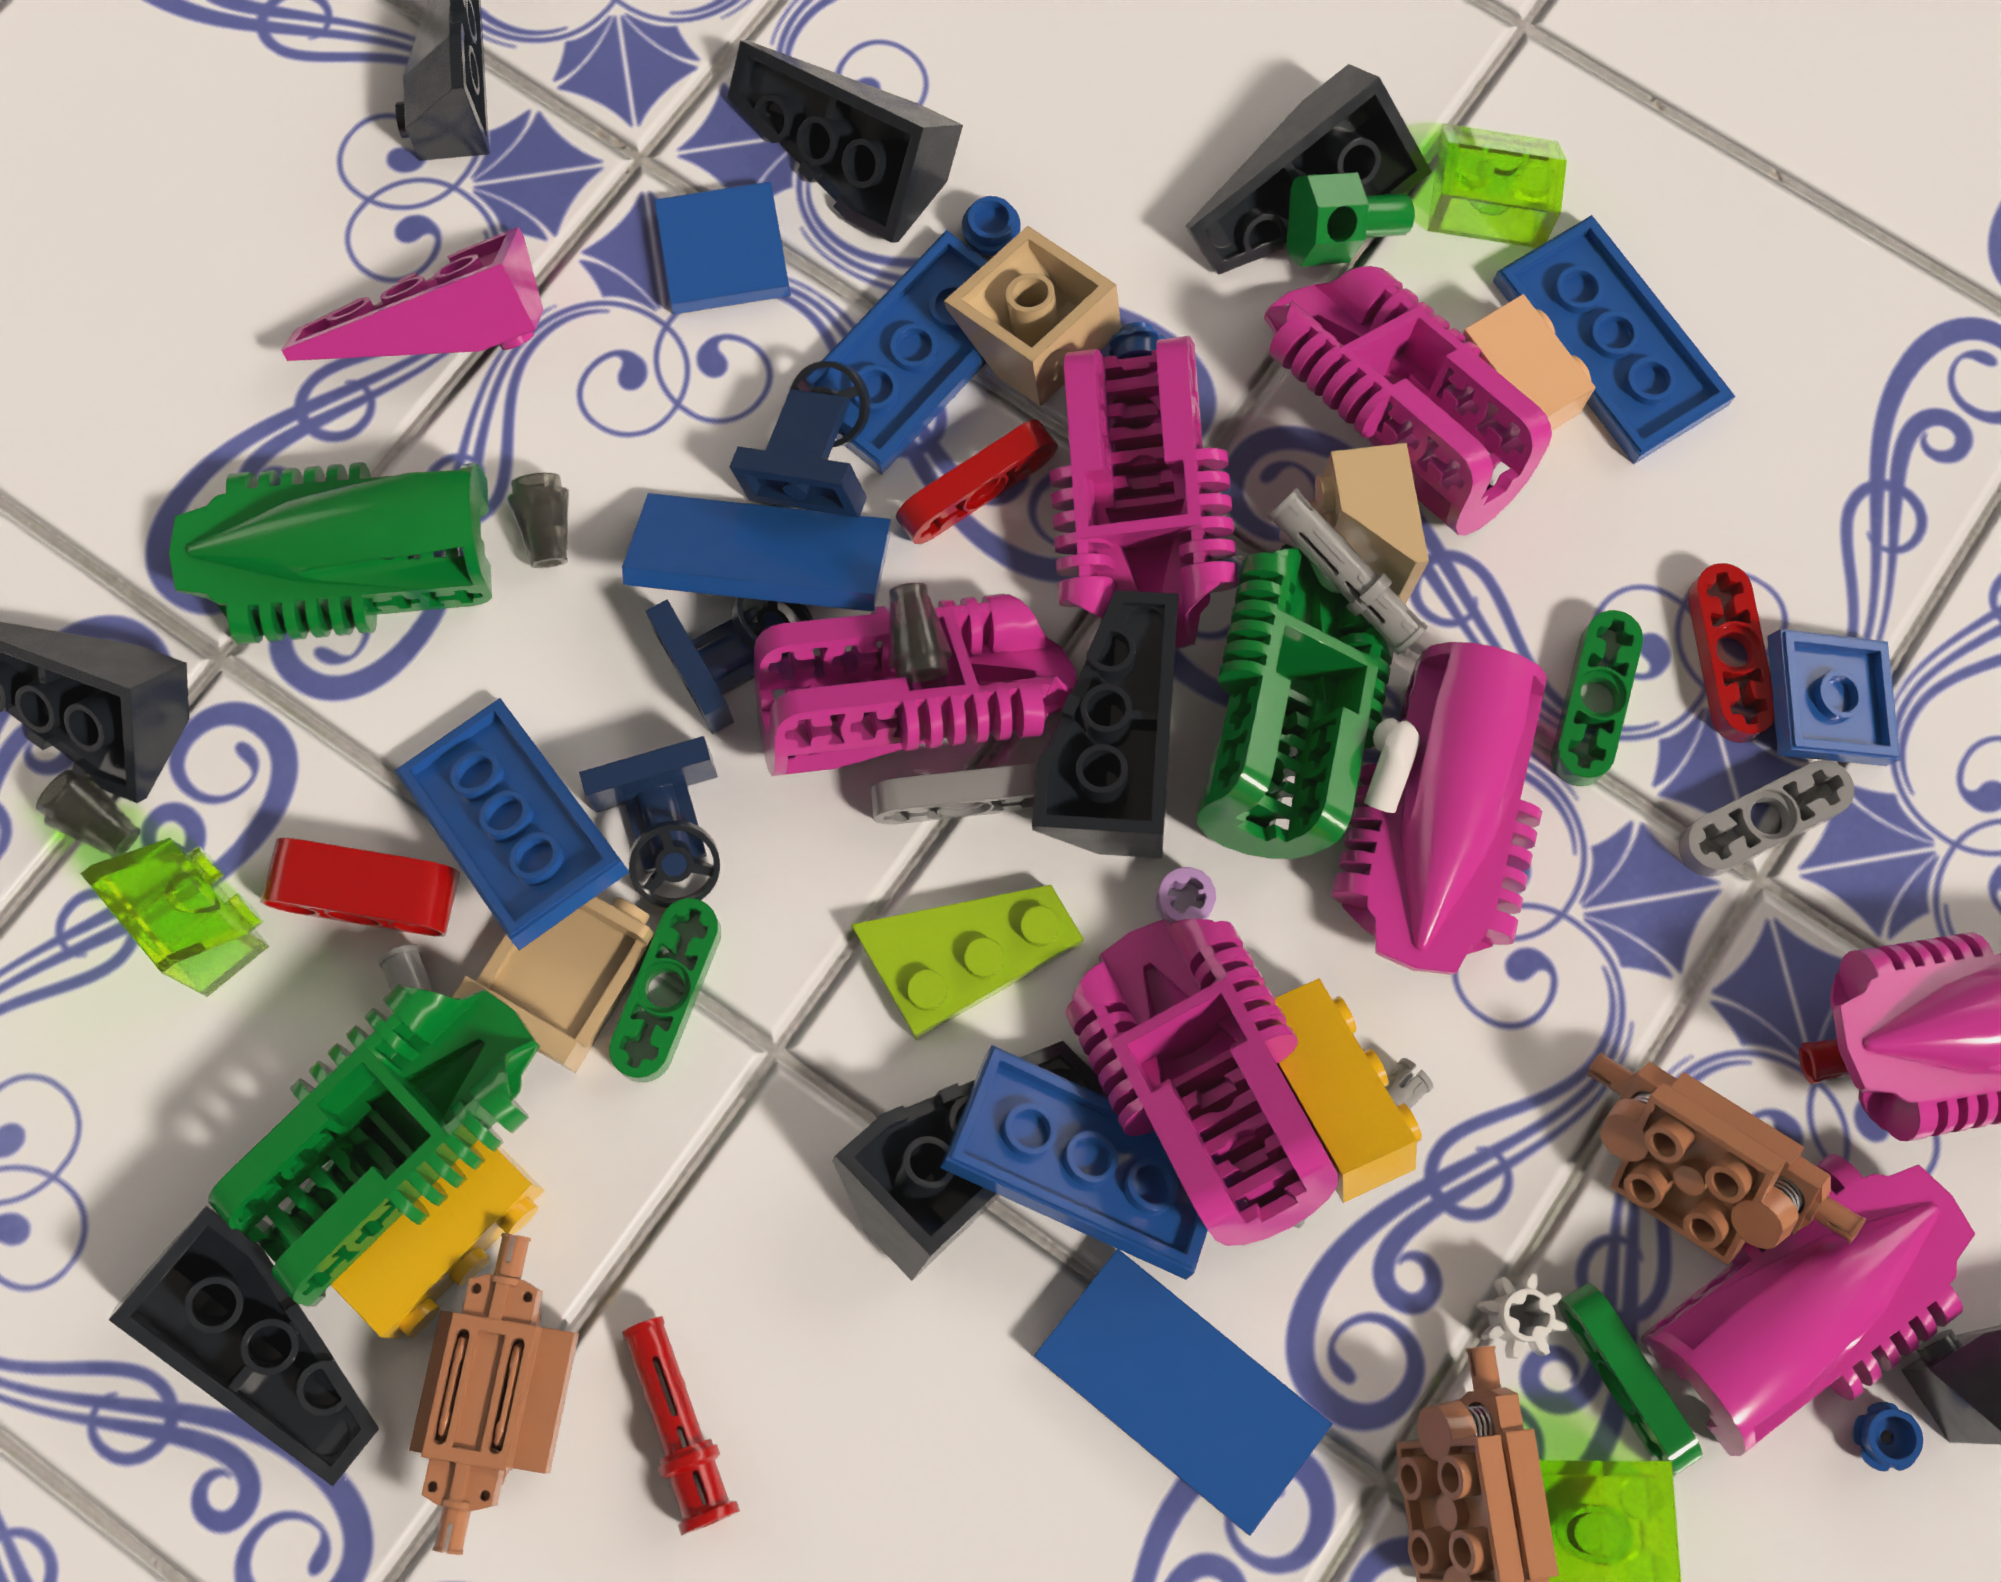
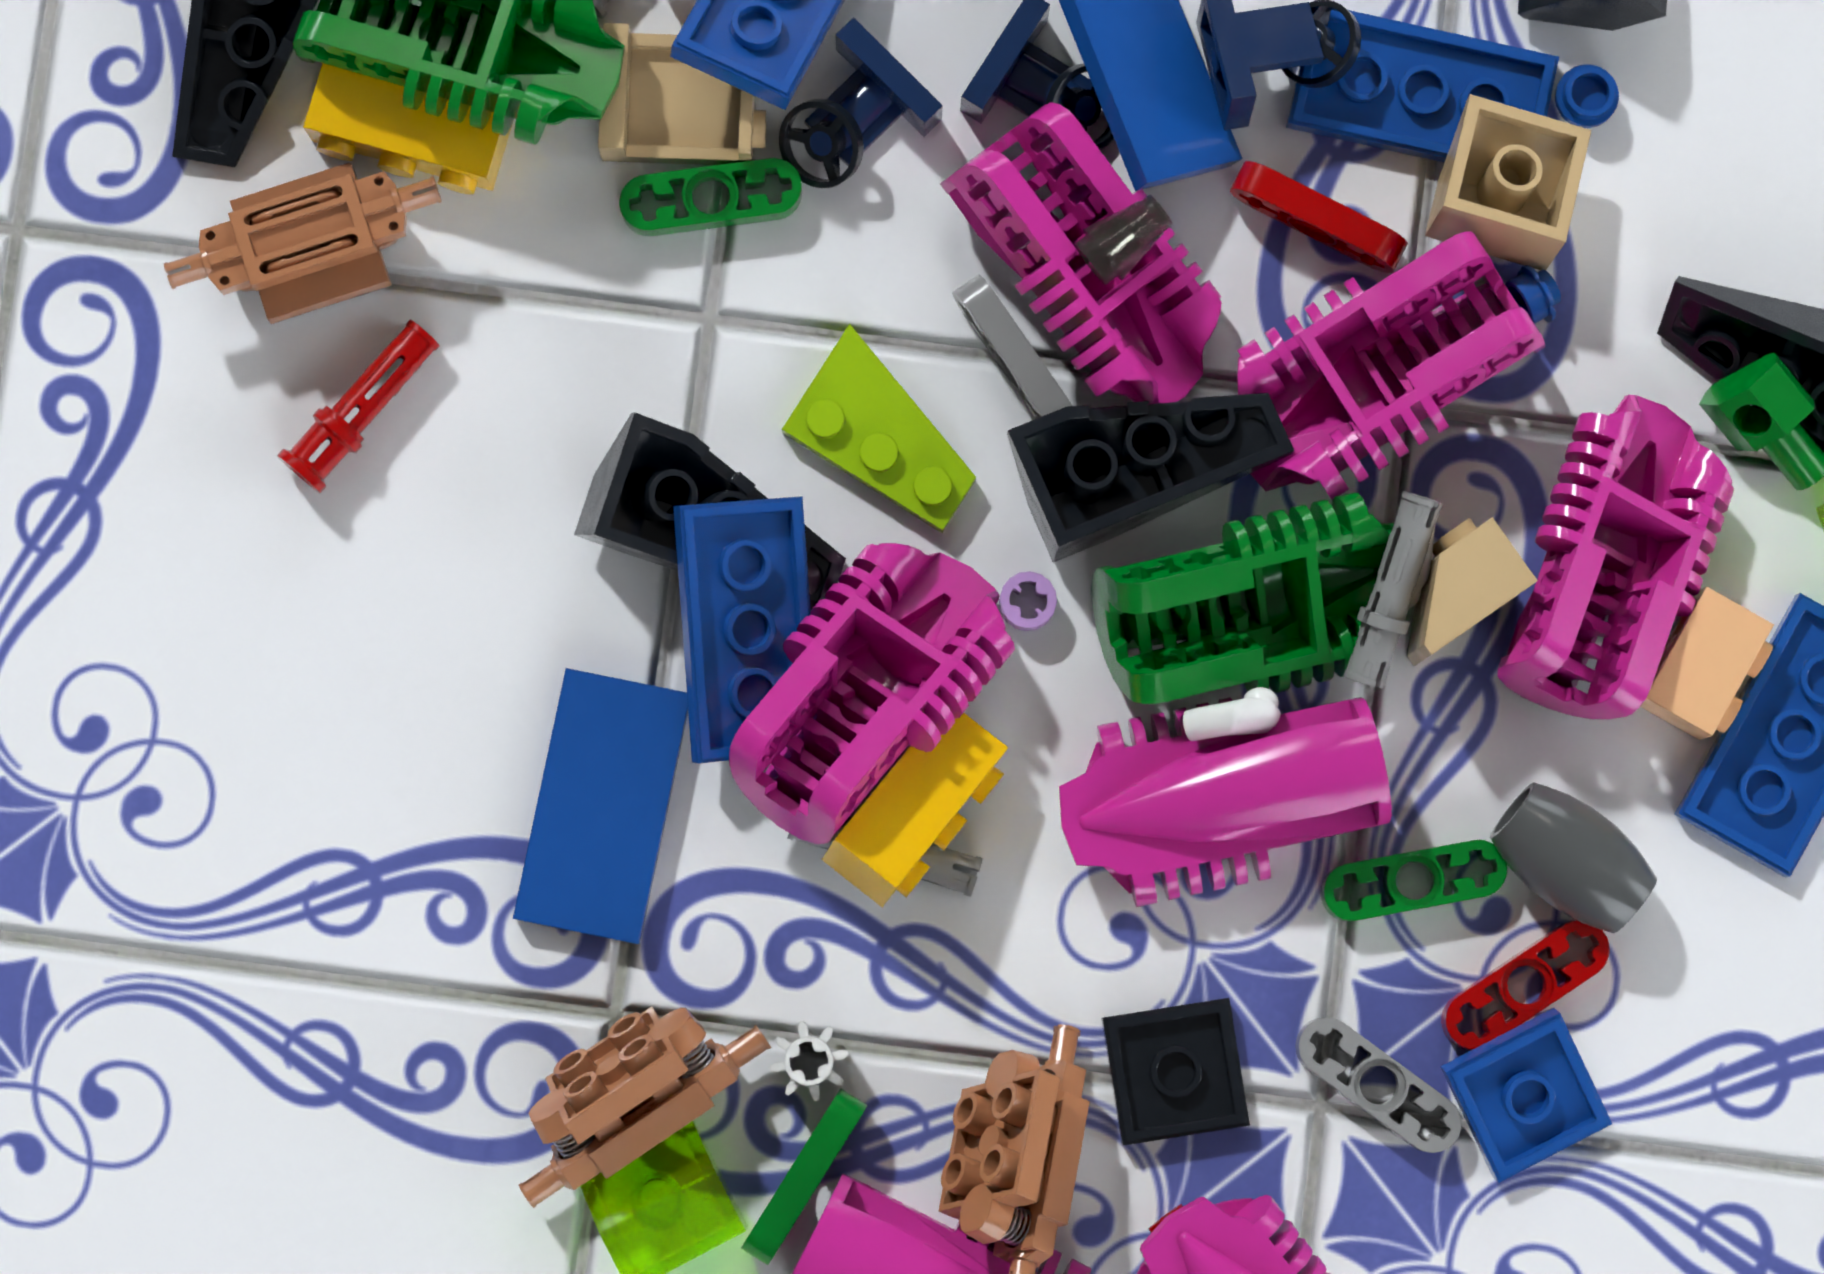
camera: 60 degrees right, 10 degrees up
(1645, 552) = (1573, 858): none -> dark grey piece
(1675, 988) = (1175, 1071): none -> black tile

